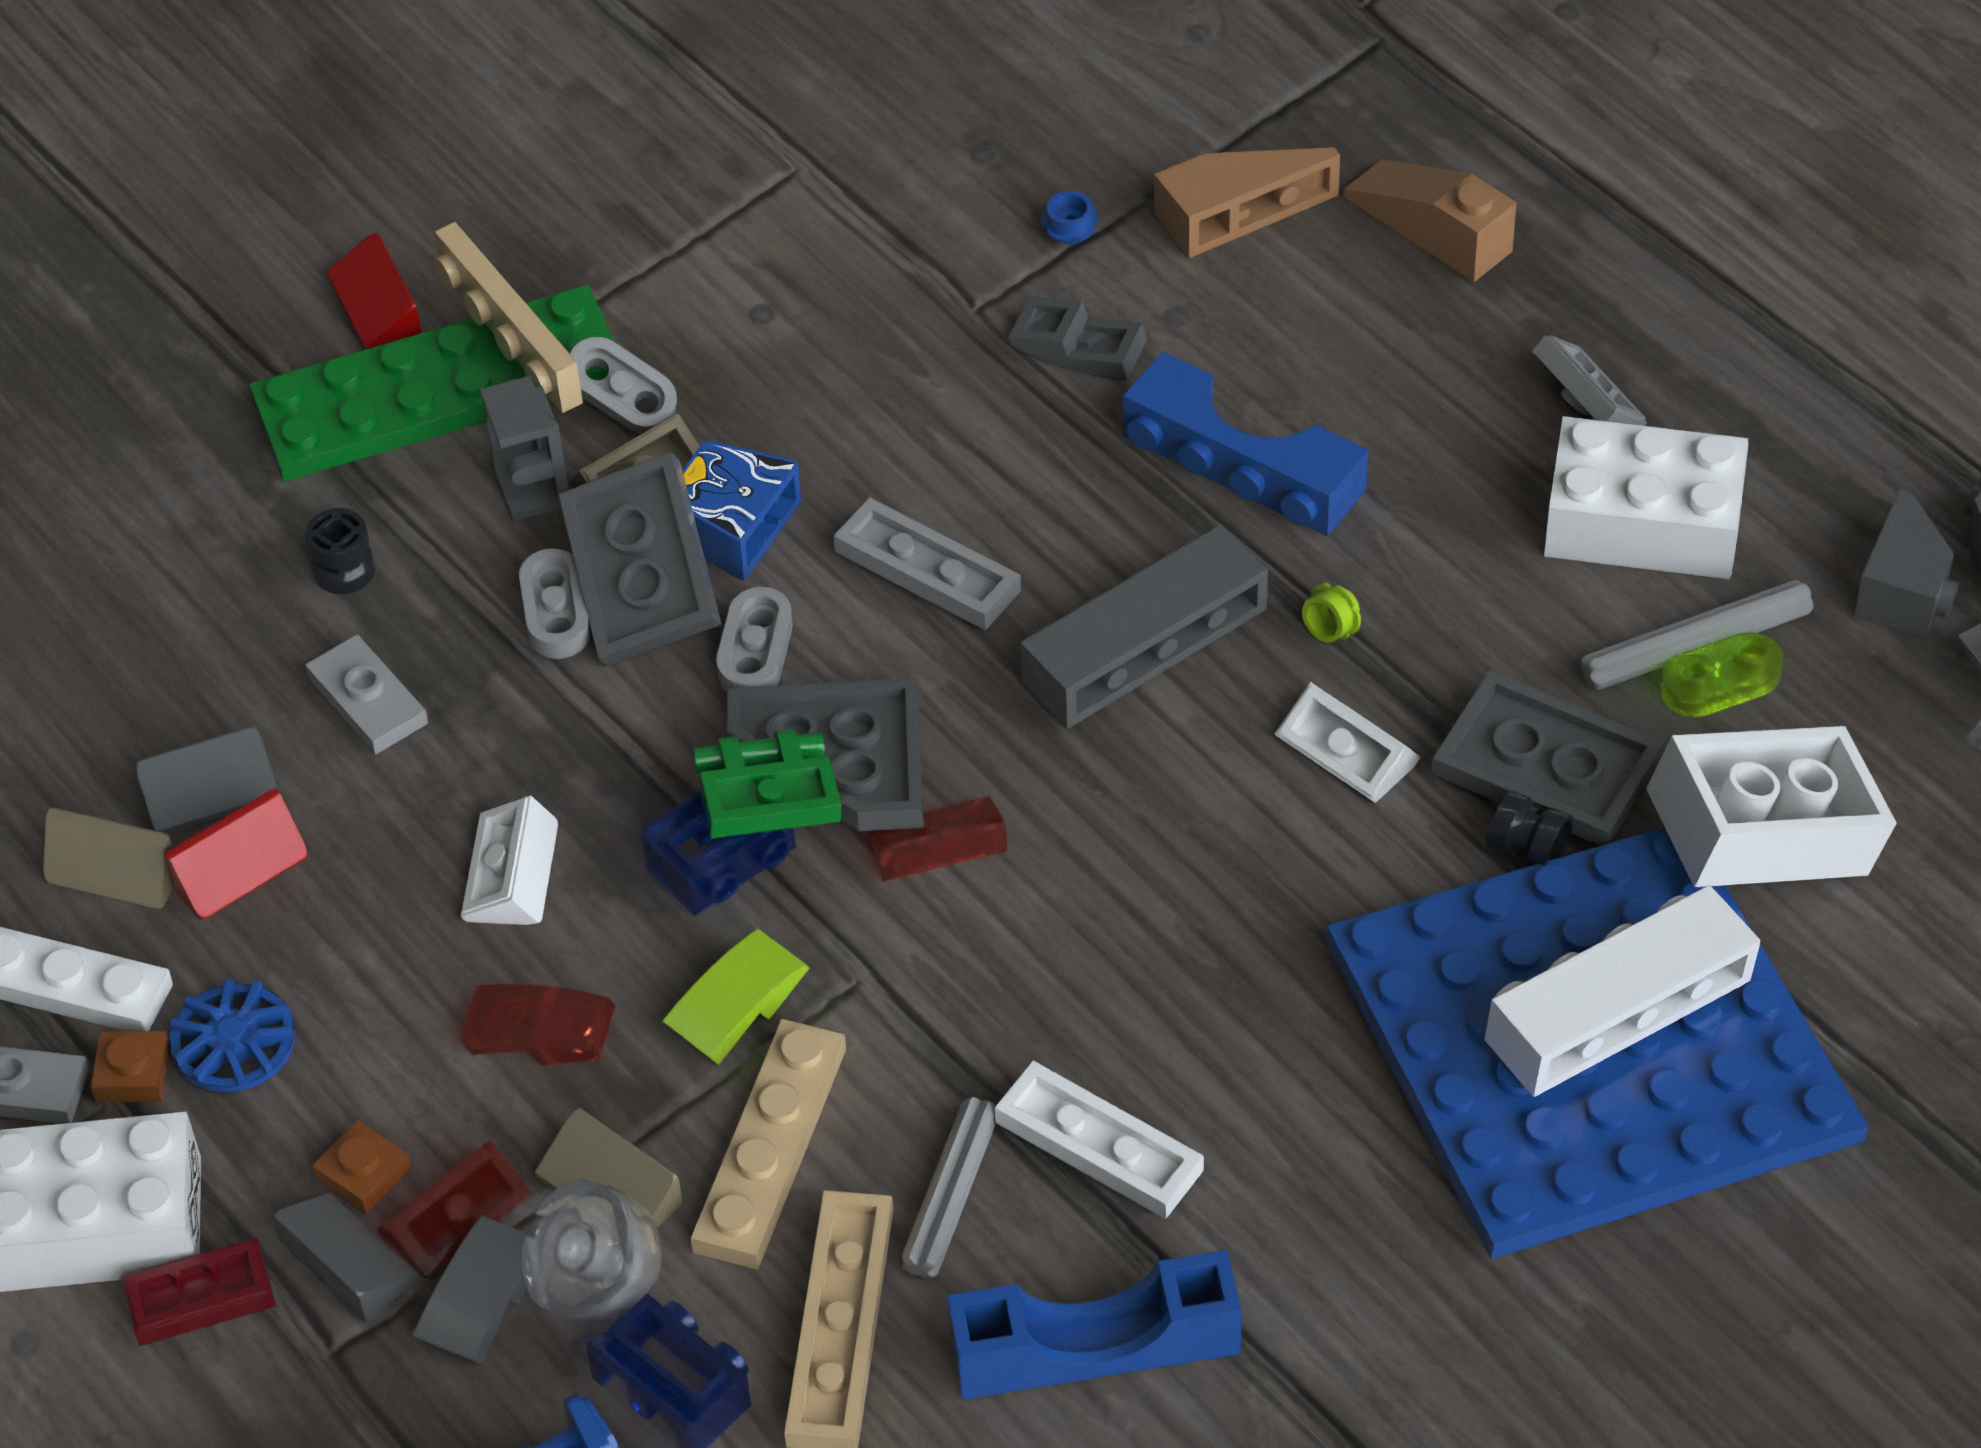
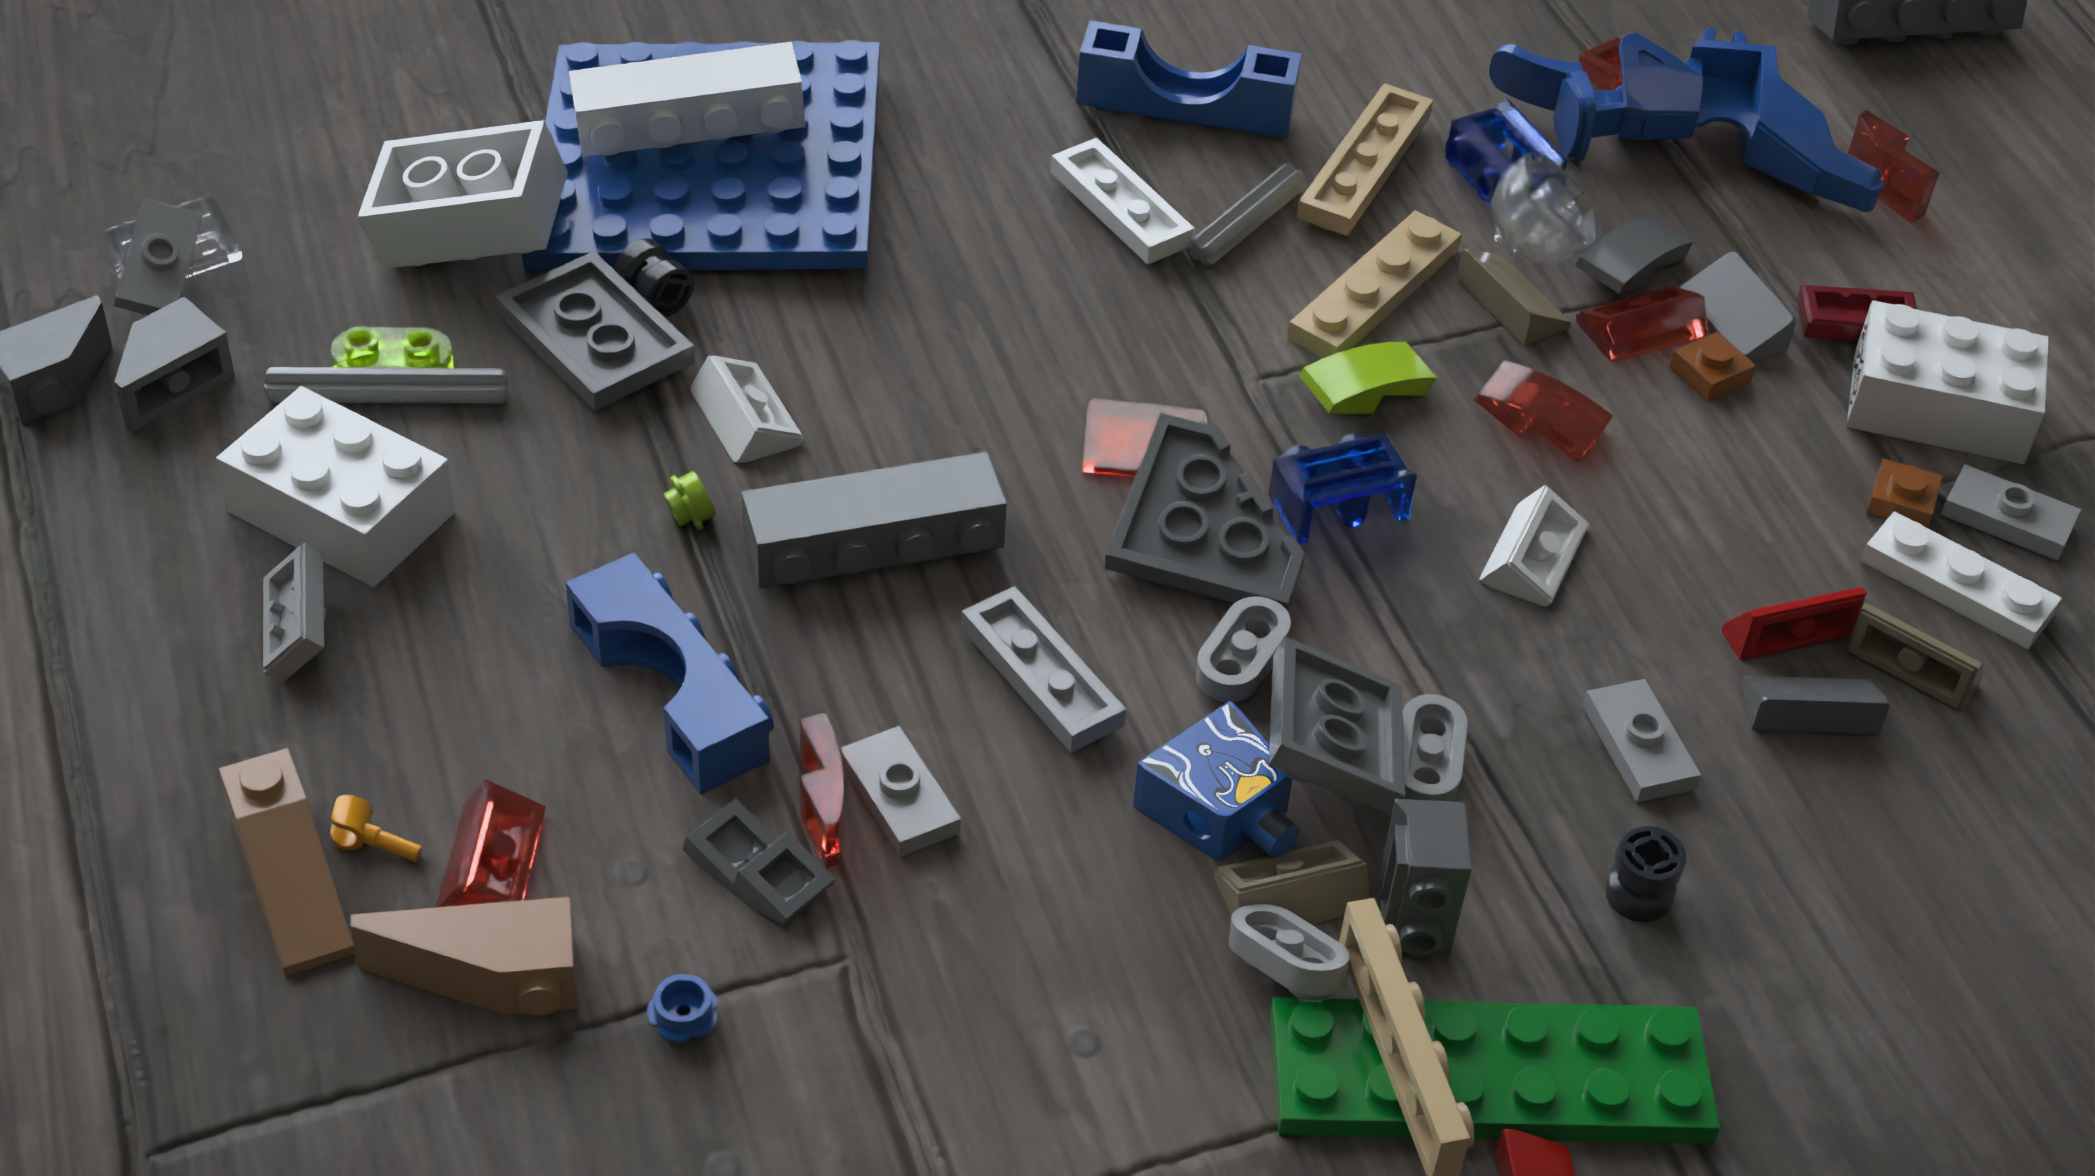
camera: 165 degrees left, 5 degrees down
(232, 1036) = (1811, 490): blue wheel -> none
(766, 783) = (1295, 435): green plate -> none
(998, 432) = (900, 791): none -> light grey plate
(1057, 403) = (822, 788): none -> slope
(1290, 282) = (492, 848): none -> clear red slope
(1408, 256) = (353, 828): none -> light orange hand

